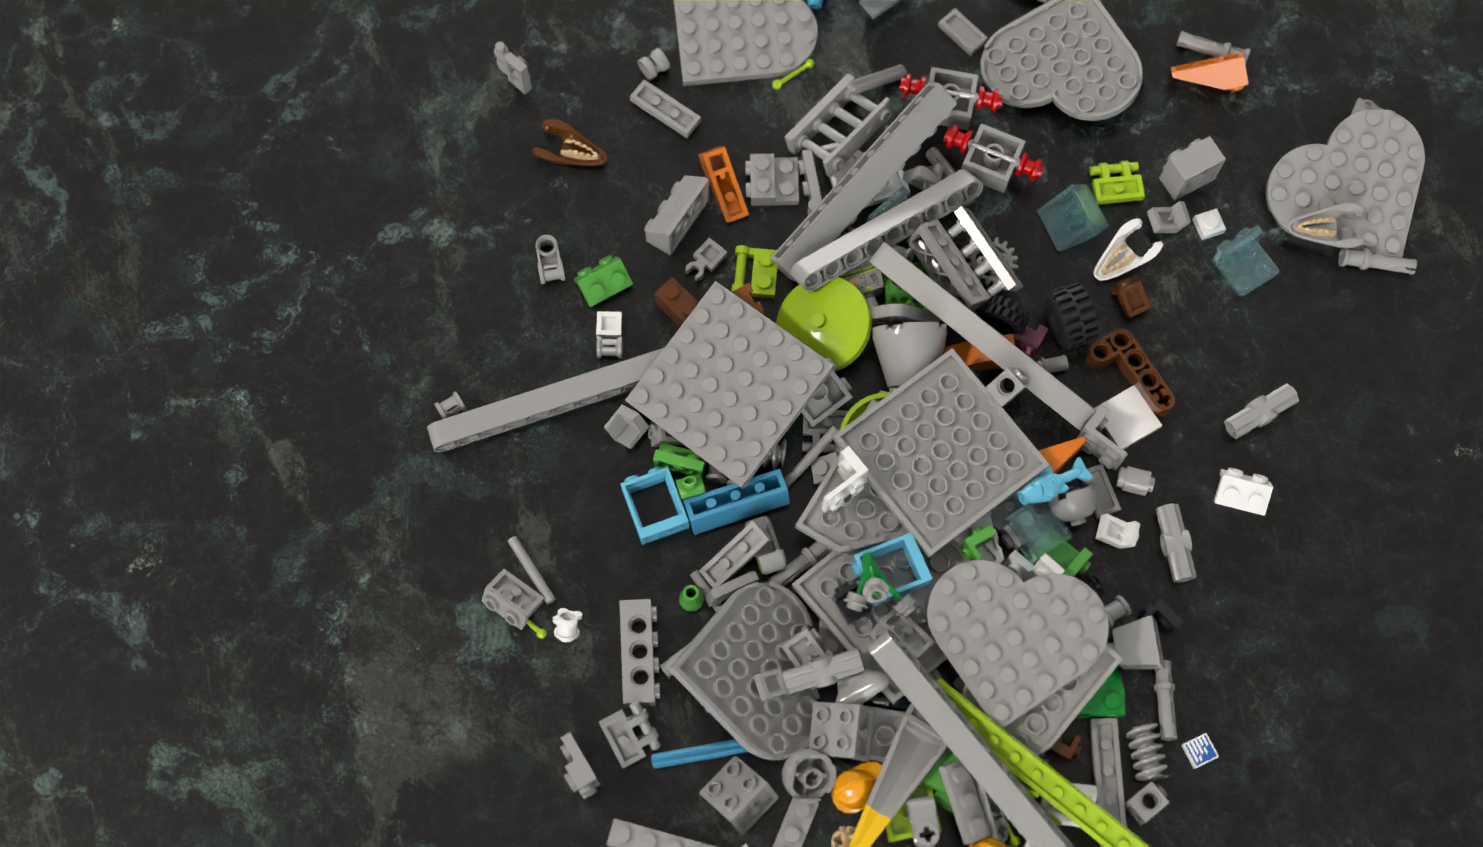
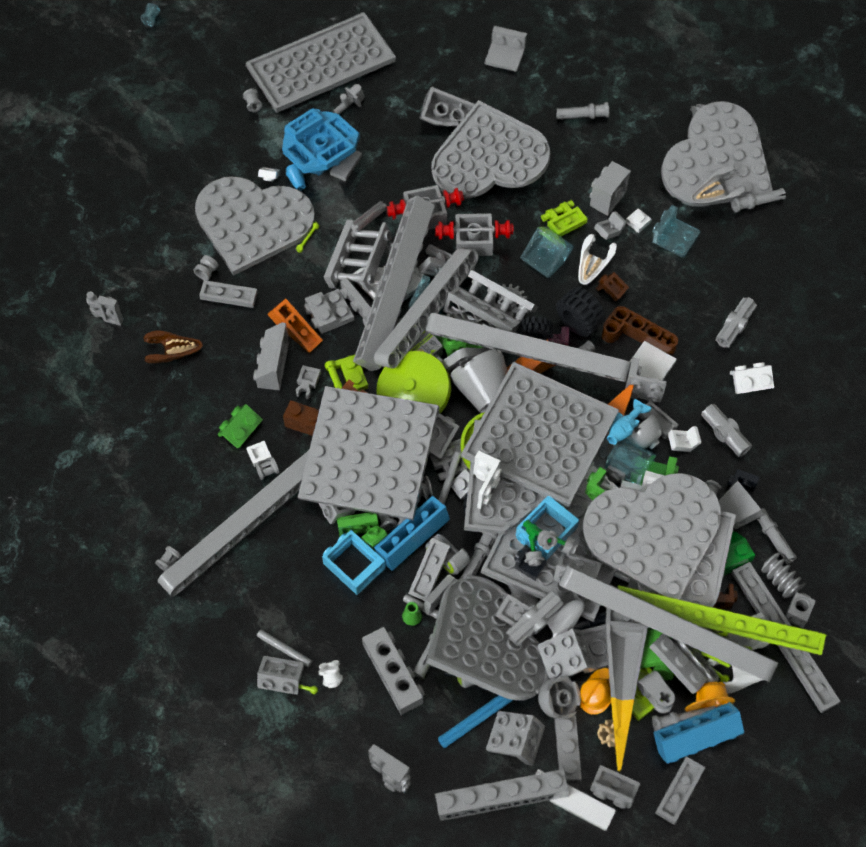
camera: 25 degrees left, 10 degrees down
(550, 263) = (195, 430): light grey piece -> none
(622, 738) = (411, 734): light grey plate -> none
(626, 426) = (306, 516): light grey panel -> none
(770, 684) = (502, 643): light grey plate -> none
(963, 32) = (411, 165): light grey tile -> none
(998, 391) = (564, 379): light grey brick -> none
(1135, 480) = (678, 401): light grey brick -> none
(1200, 751) = (815, 559): tile -> none
(1218, 72) = (597, 122): slope -> none

